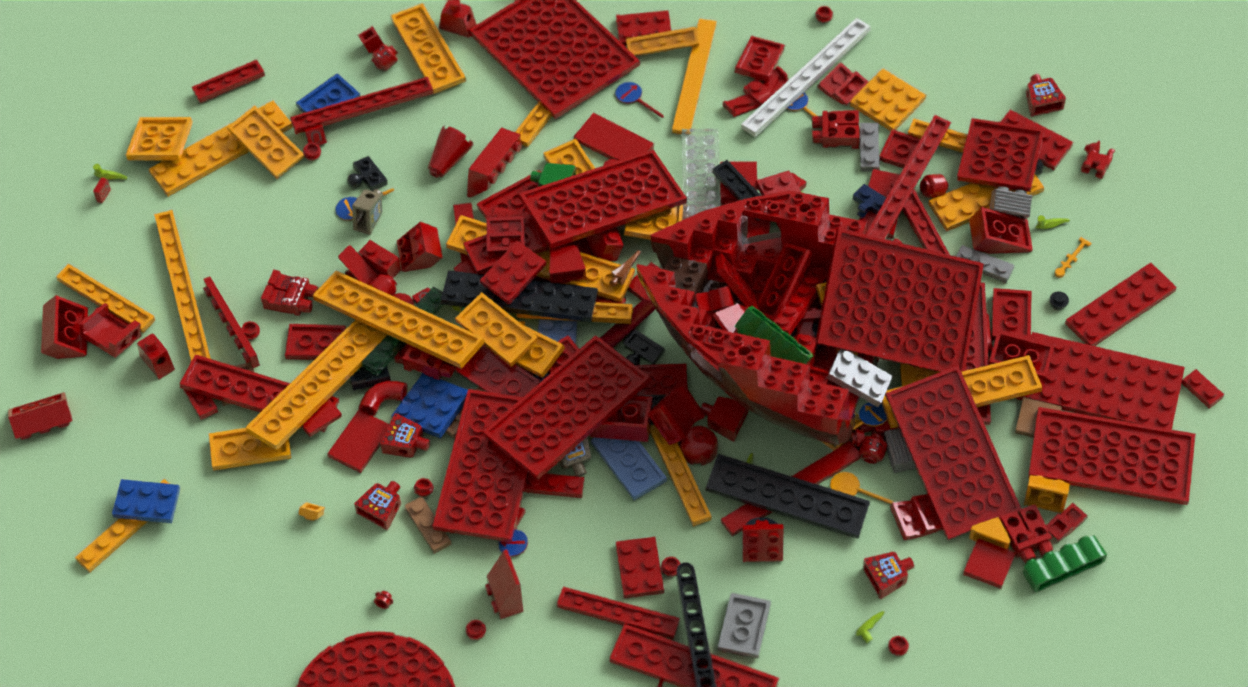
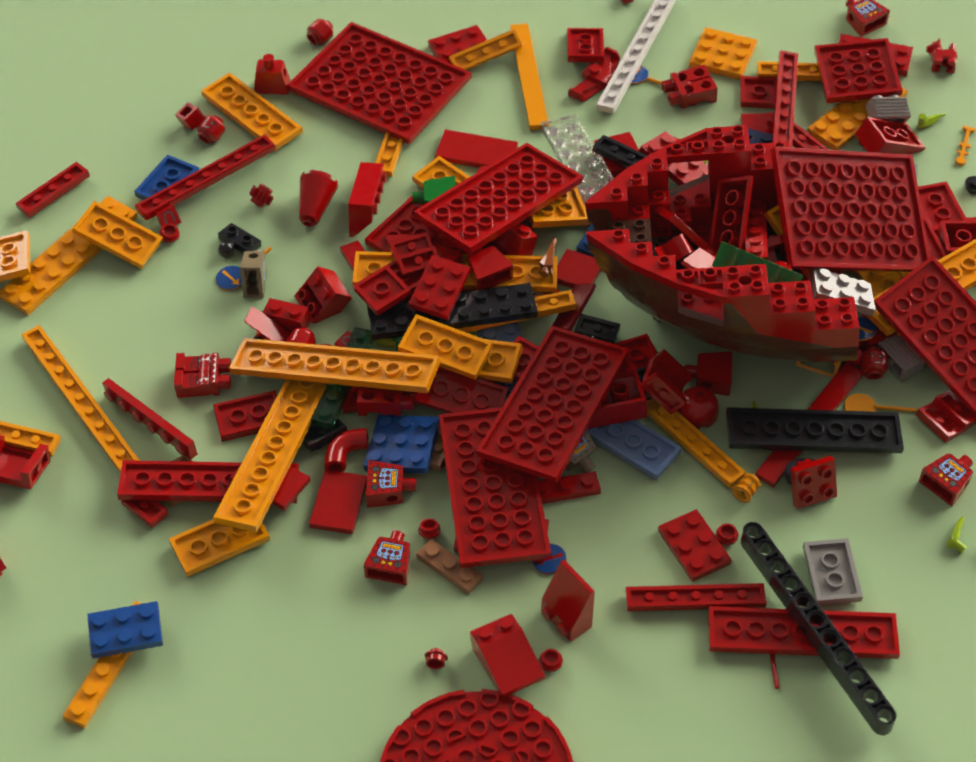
camera: 20 degrees left, 5 degrees down
(150, 351) = (77, 474): red torso -> none
(251, 330) = (174, 419): red plate -> none
(311, 511) = (316, 588): light orange plate -> none
(403, 136) = (261, 195): none -> red gear
(438, 614) = (506, 655): none -> red slope
(463, 261) = (382, 290): none -> red plate
(631, 92) = (474, 104): blue piece -> none
(701, 534) = (747, 488): none -> light orange bush
(842, 84) = (674, 50): red slope -> none
(869, 146) = (728, 98): light grey plate -> none
(933, 185) = (807, 113): red head -> none

